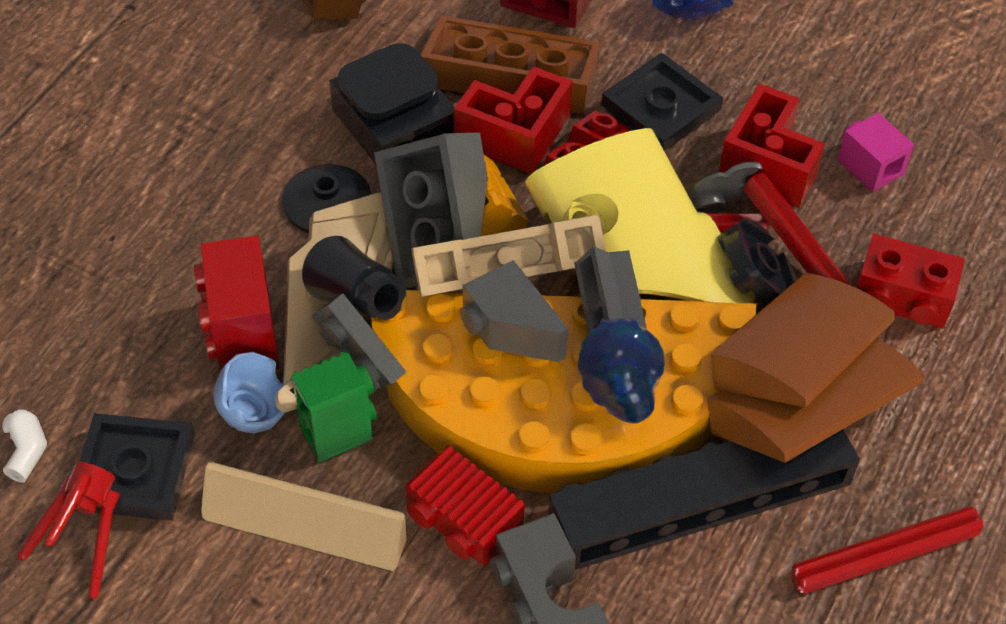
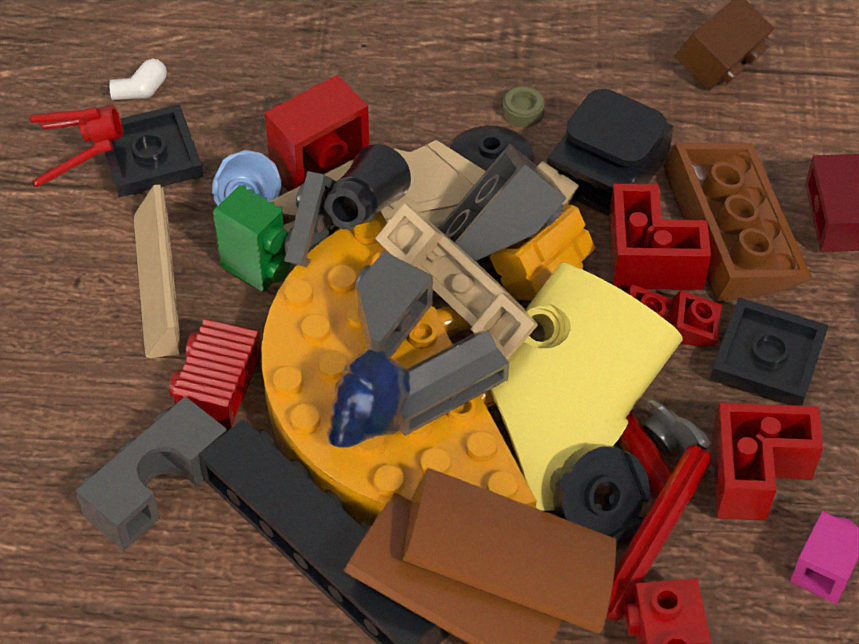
camera: 65 degrees right, 0 degrees up
(284, 148) = (523, 106): none -> olive tile

